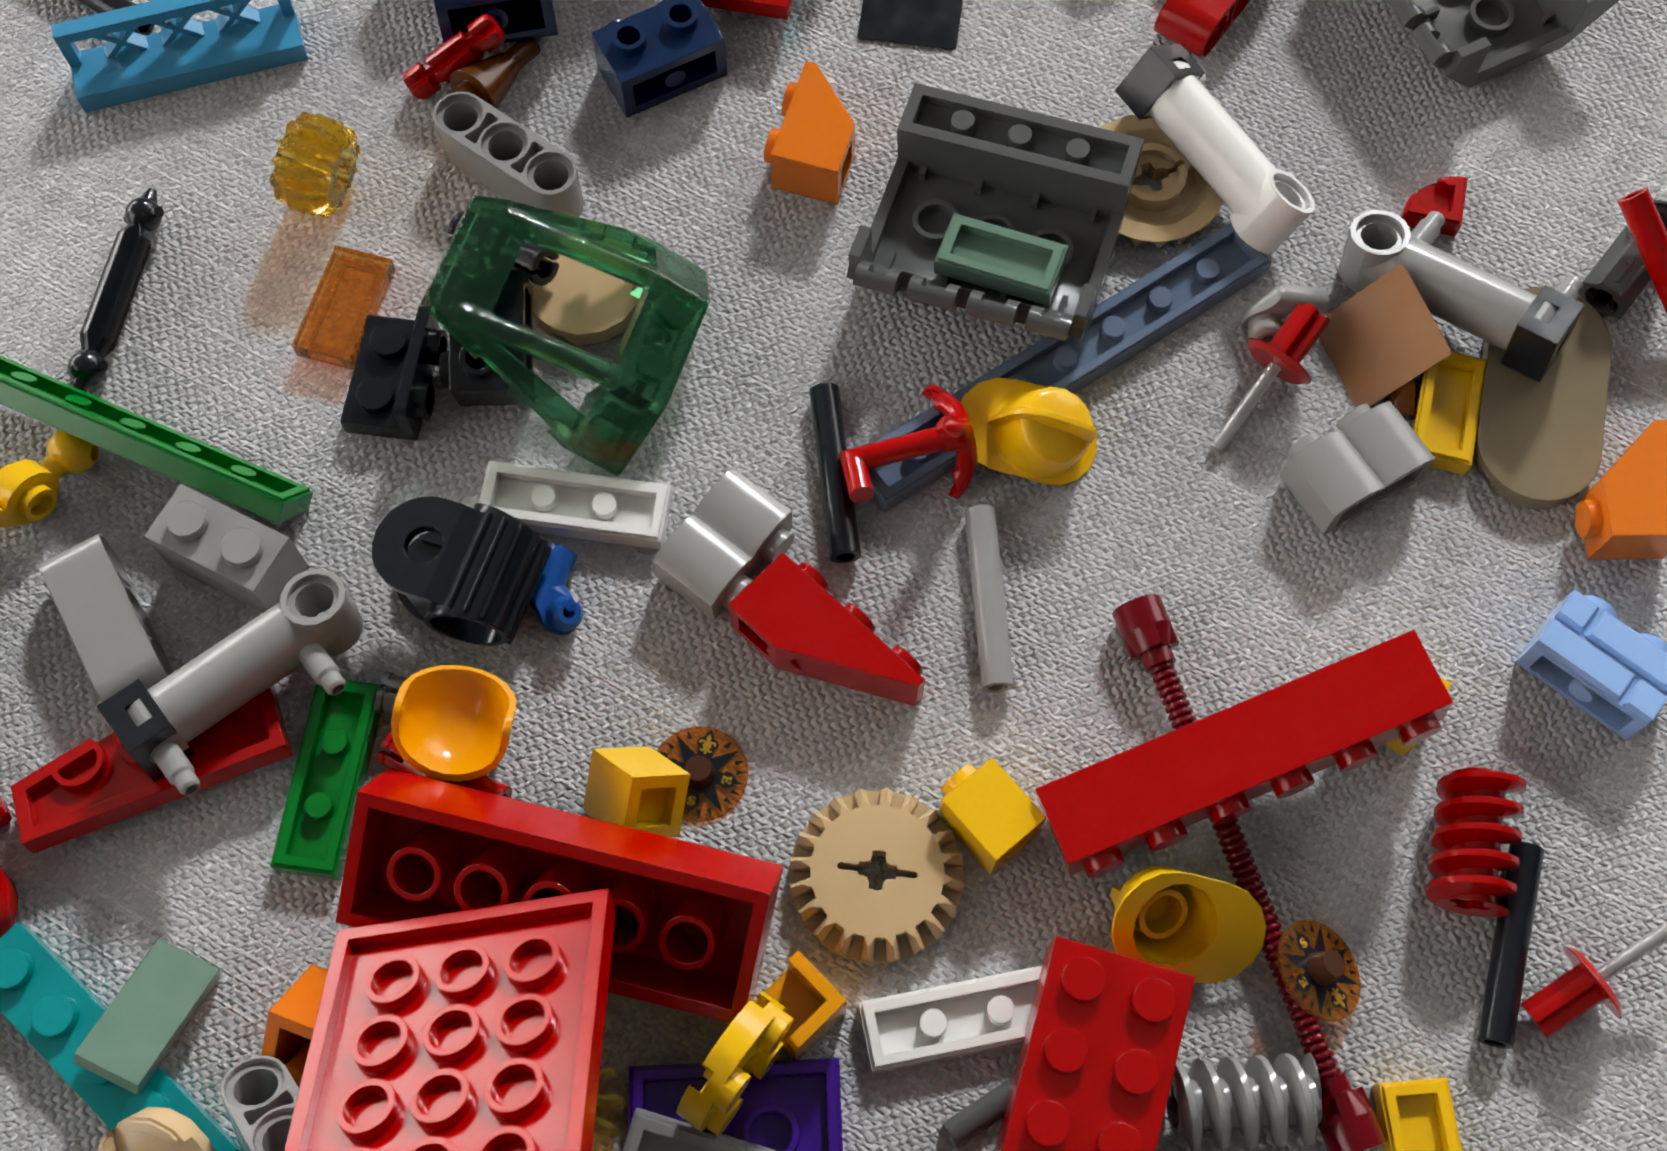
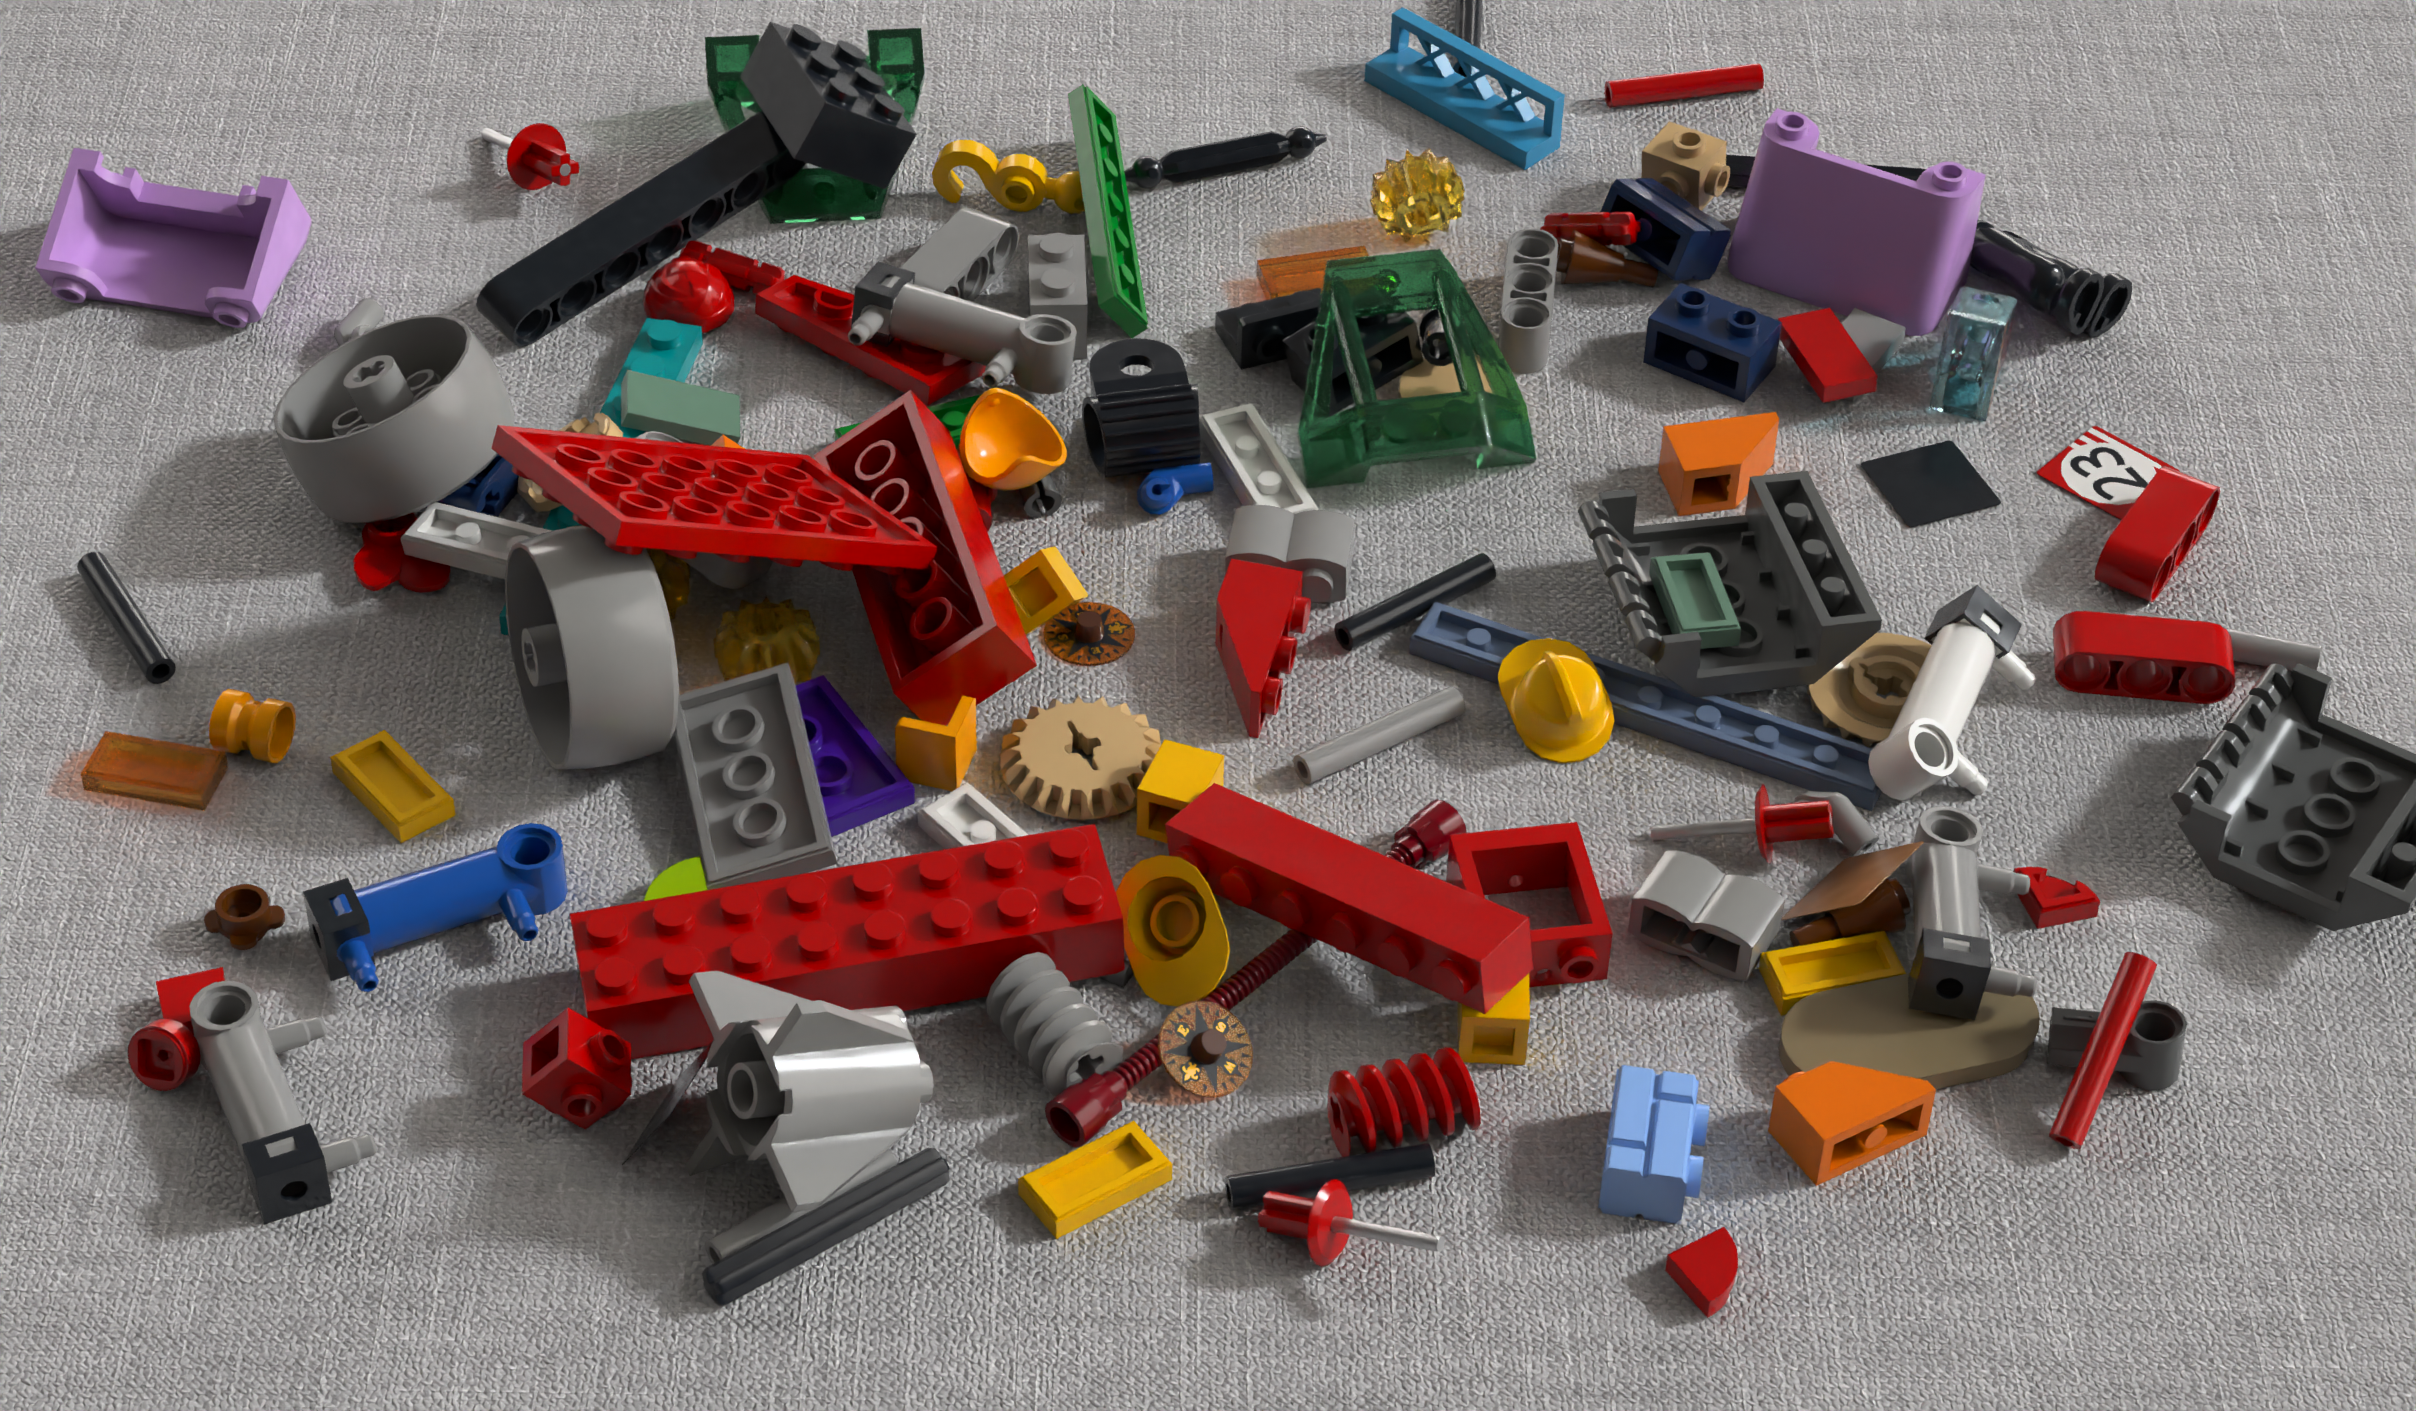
camera: 60 degrees right, 25 degrees down
(745, 1047) = (871, 714): yellow plate -> none
(950, 434) = (1487, 622): red piece -> none
(1264, 648) = (1536, 861): none -> red window

